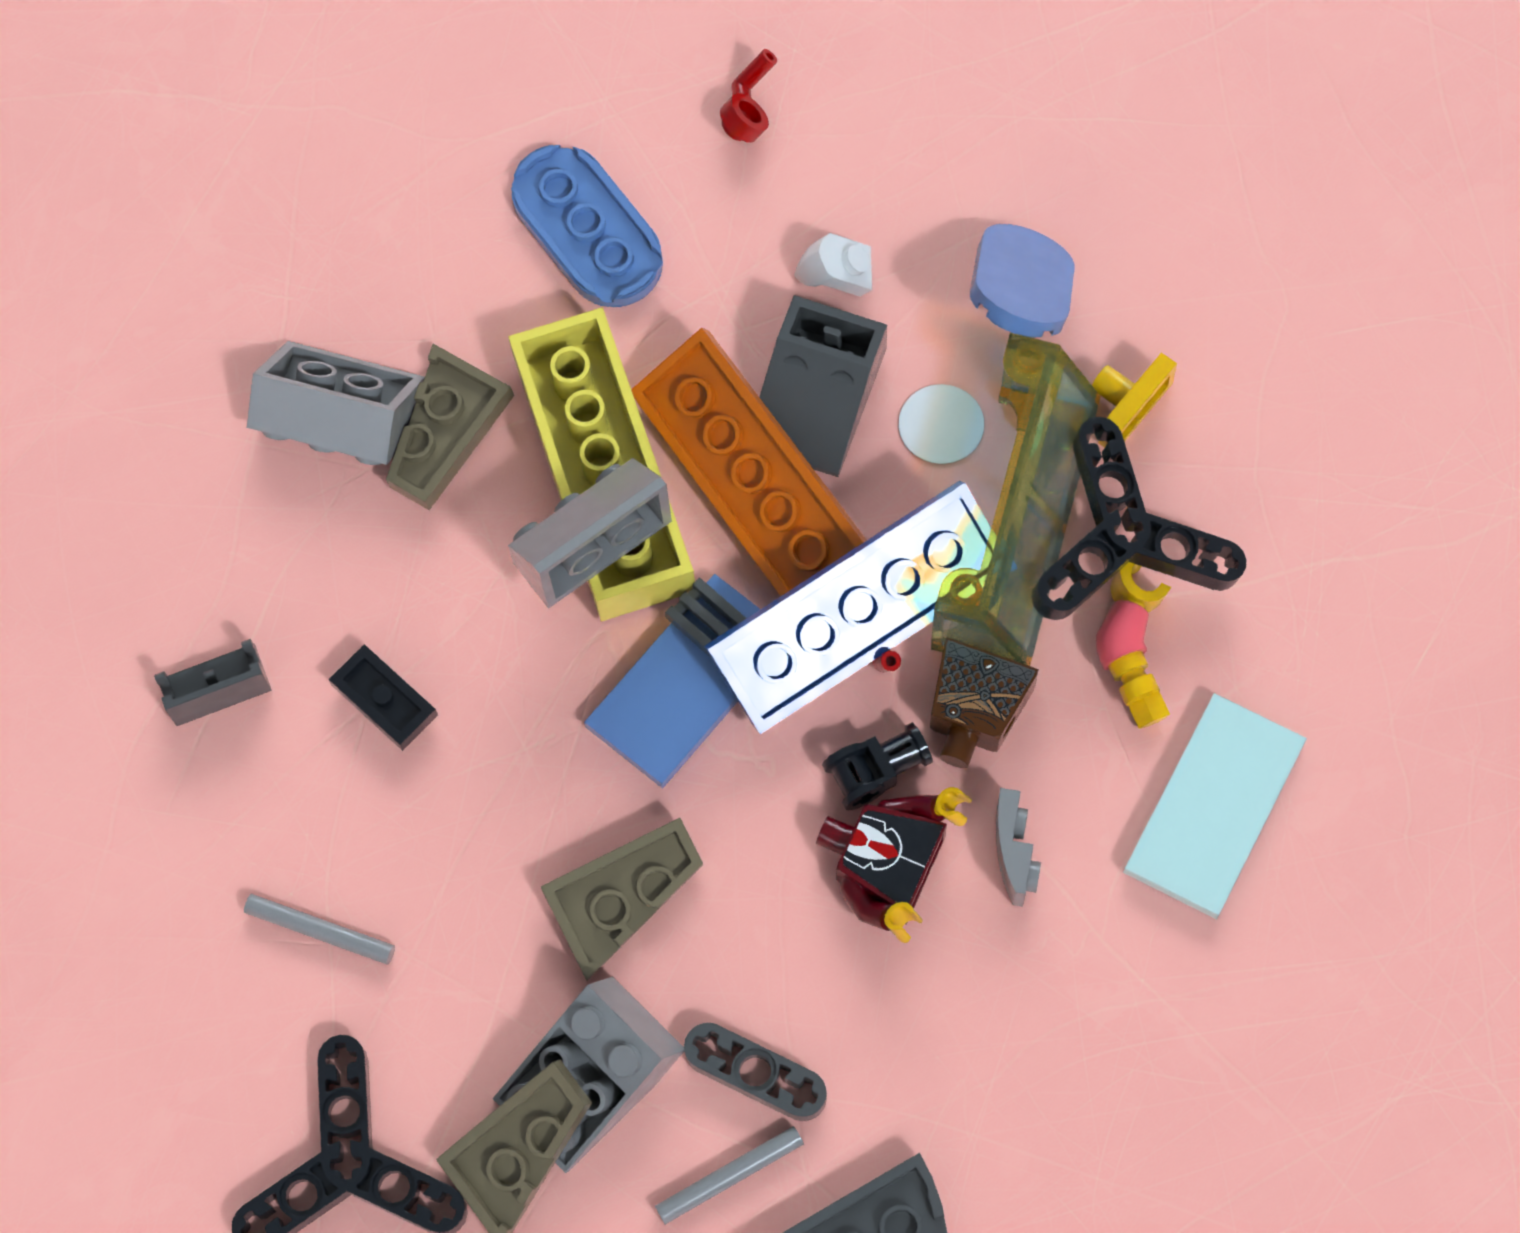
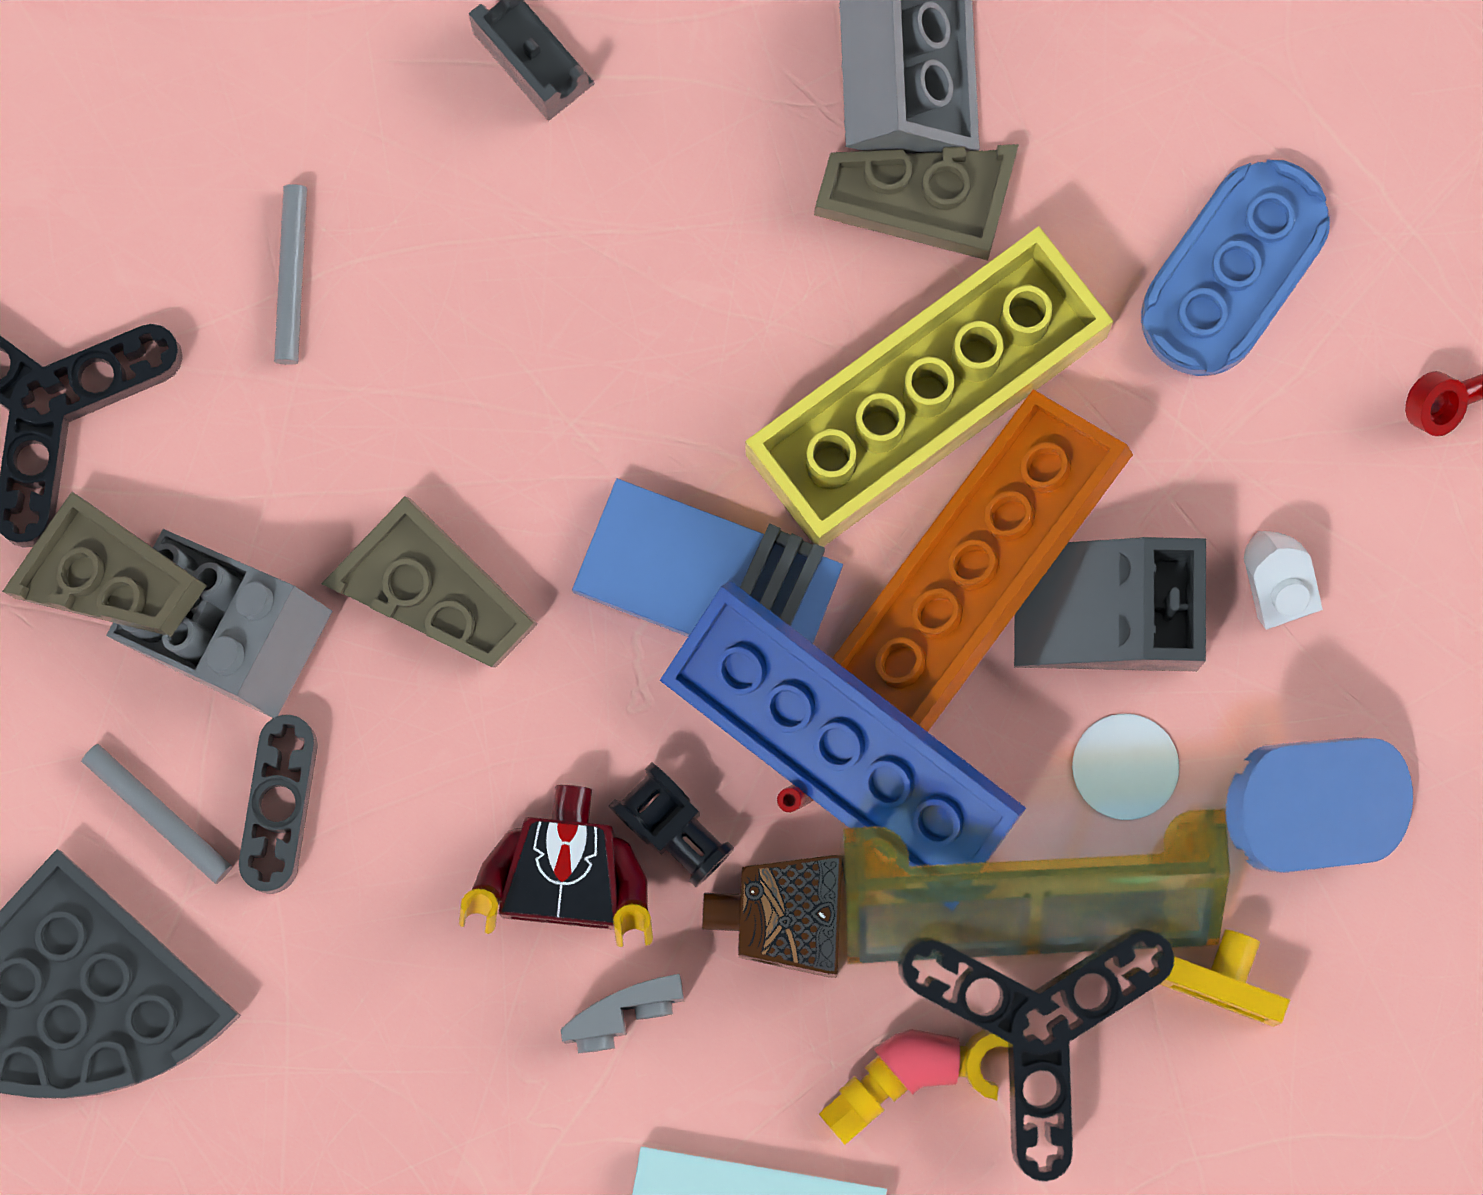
camera: 70 degrees right, 10 degrees up
(383, 697) = (573, 245): black plate -> none
(591, 530) = (815, 400): light grey slope -> none

